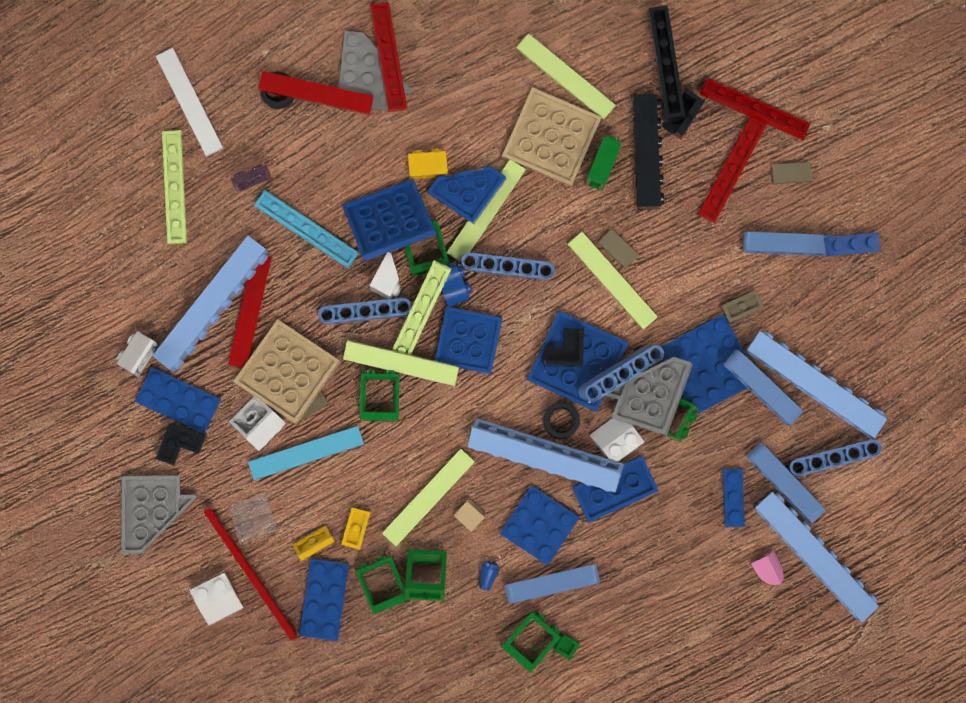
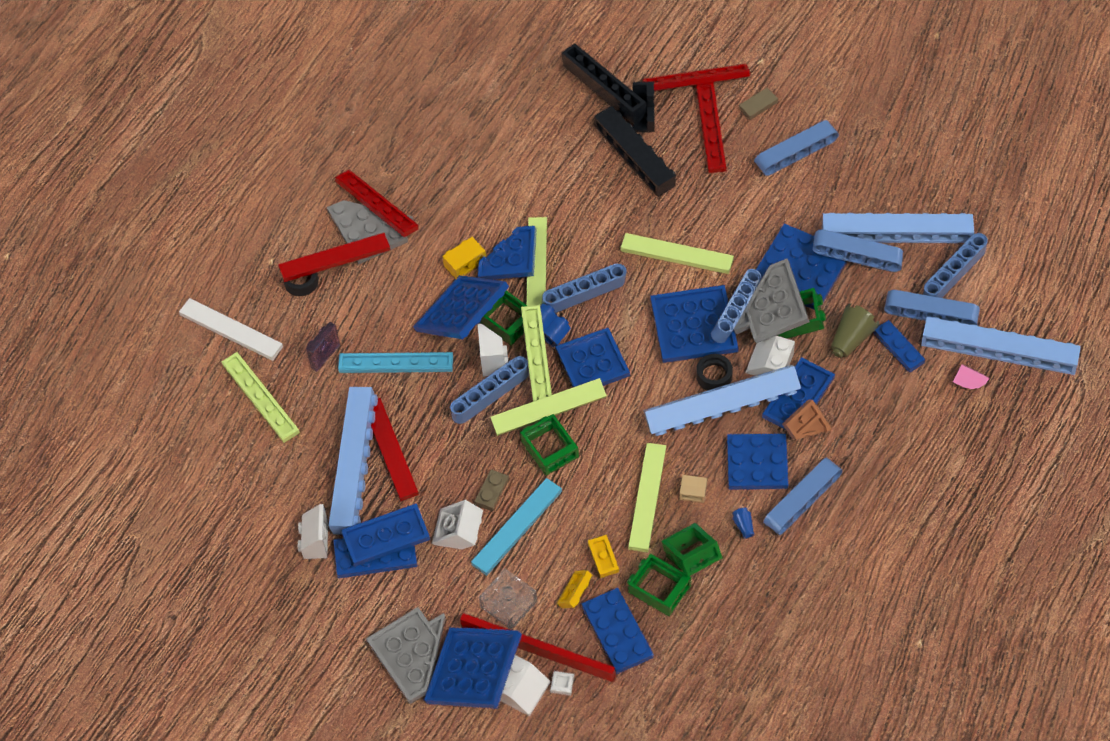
camera: 25 degrees left, 25 degrees down
(177, 438) = (396, 575): black panel -> none
(186, 562) = (473, 667): none -> blue plate
(192, 395) = (385, 534): none -> blue plate
(251, 616) = (562, 683): none -> white tile
(286, 371) = (455, 470): tan plate -> none
(551, 137) = (551, 184): tan plate -> none
(552, 630) = (820, 568): green window -> none
(565, 76) = (530, 140): yellowish green tile -> none
(566, 647) = (853, 538): green tile -> none
(570, 354) = (685, 315): black panel -> none
(600, 521) = (806, 421): none -> nougat wing
(603, 163) = (607, 173): green window -> none
(618, 249) = (664, 229): dark tan tile -> none
(701, 461) = (852, 330): none -> olive cone
(742, 306) = (795, 209): dark tan plate -> none
(852, 244) = (845, 118): blue plate -> none

